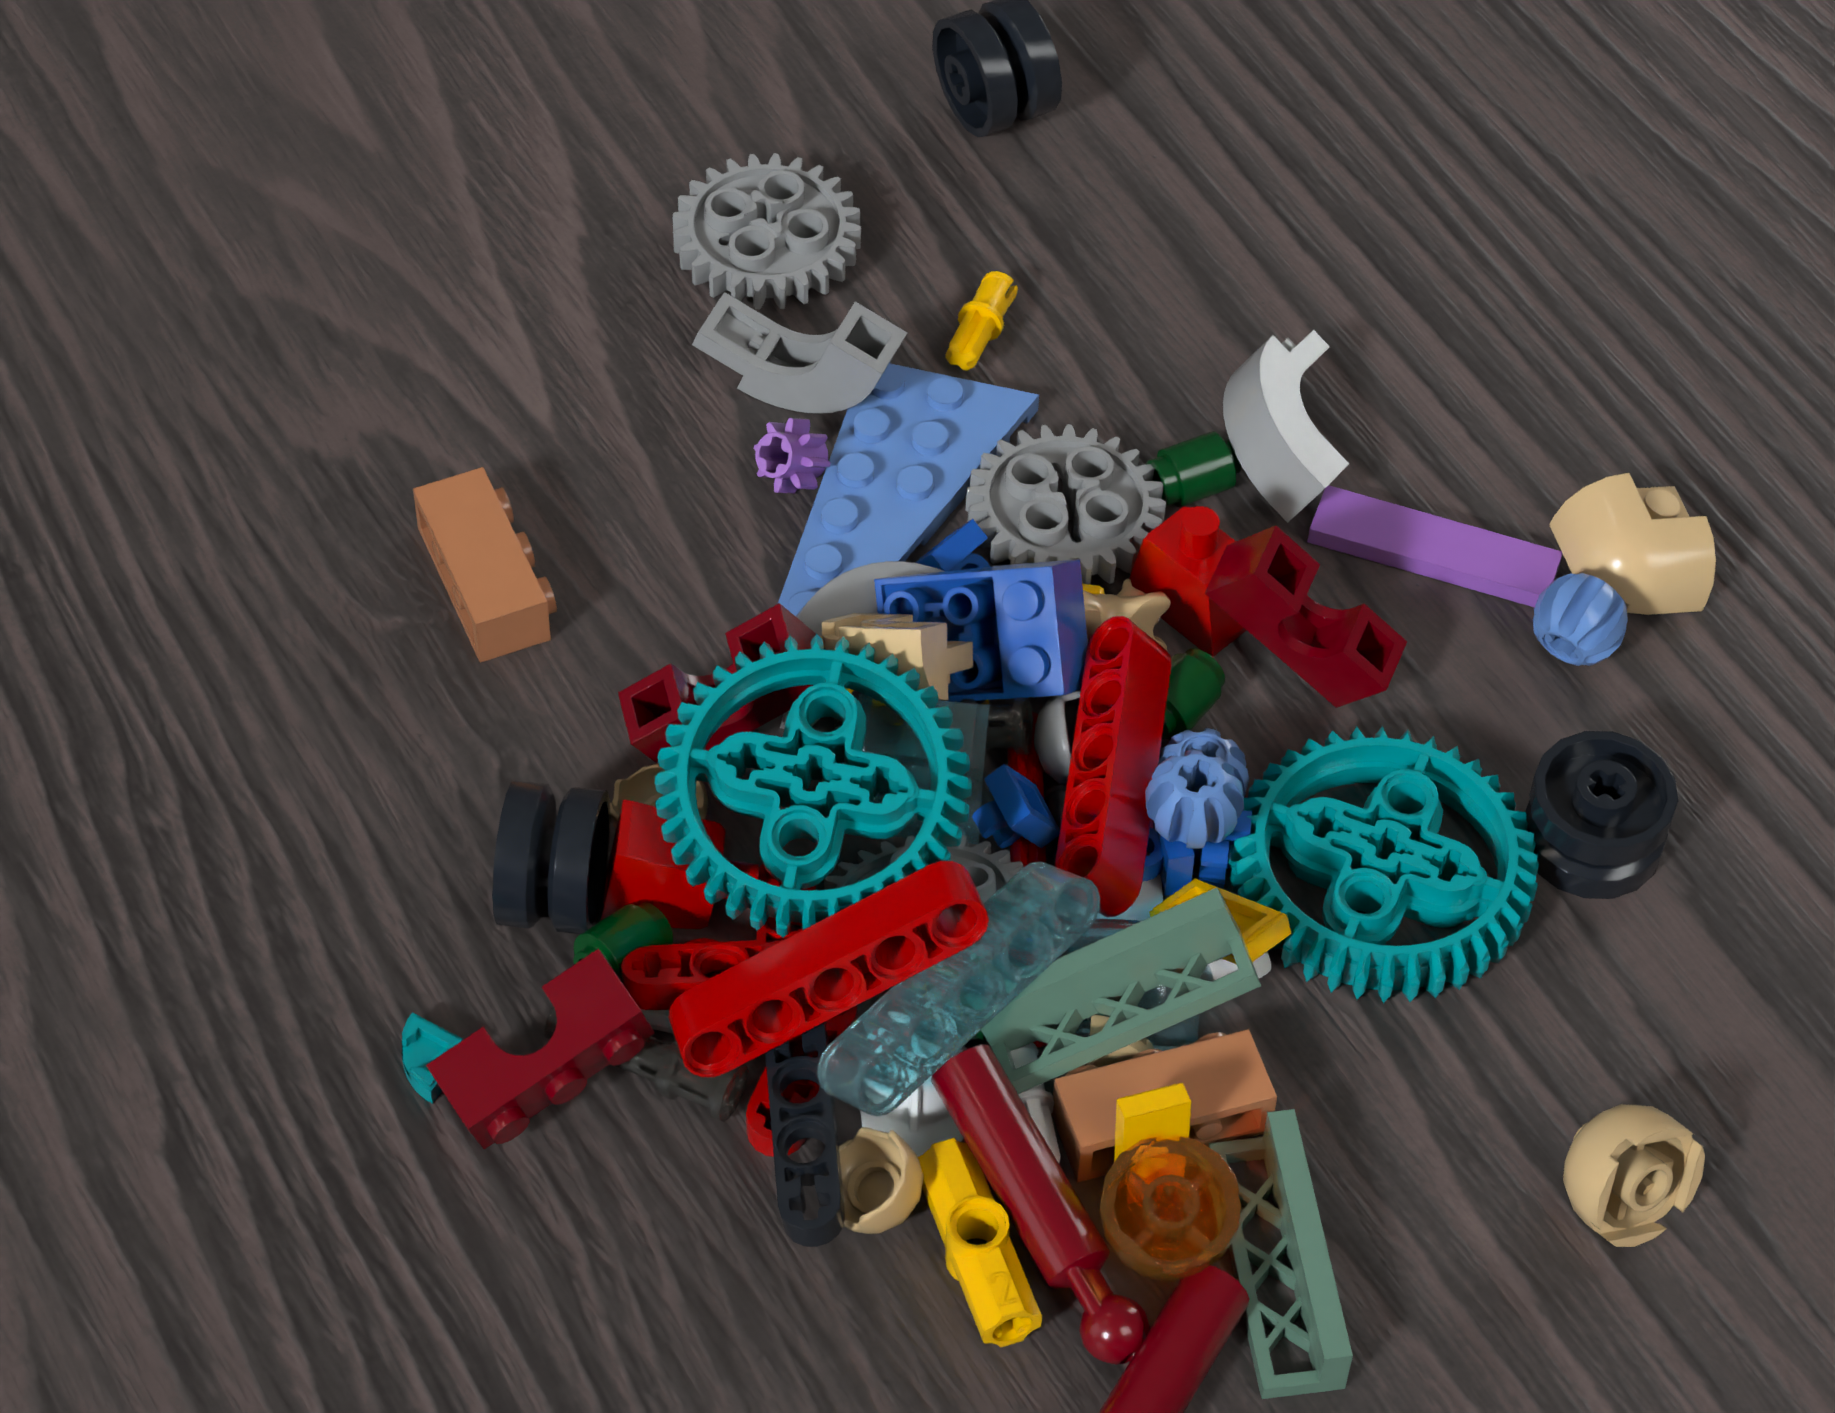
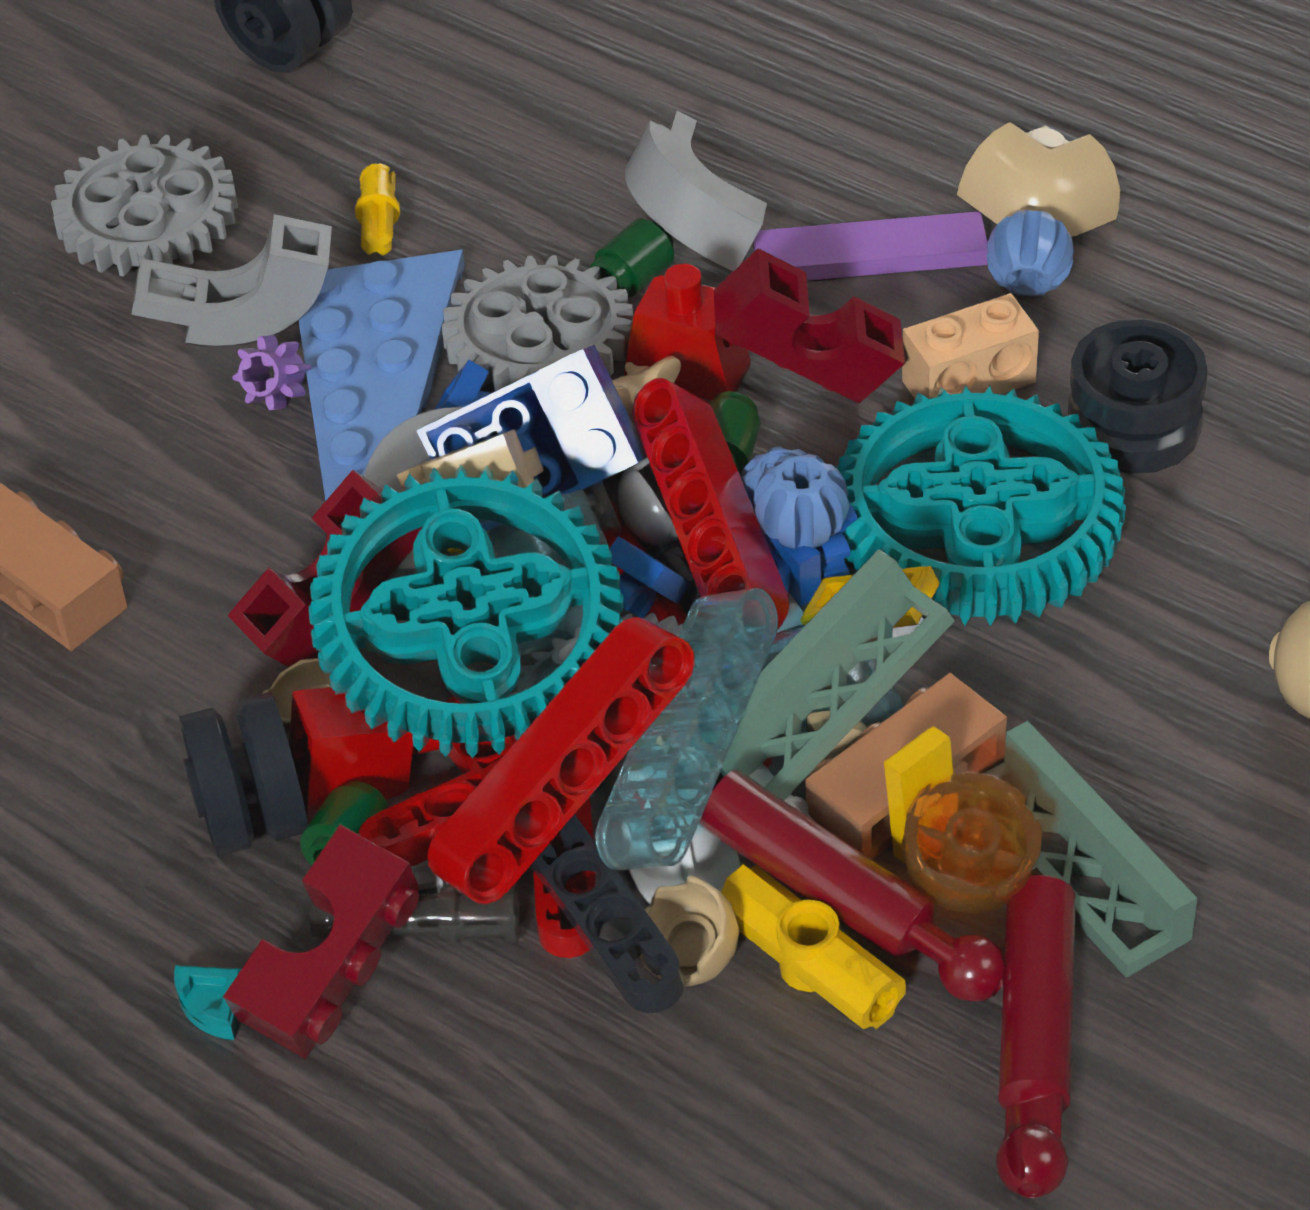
camera: 20 degrees left, 5 degrees down
(1463, 702) = (973, 348): none -> light nougat brick

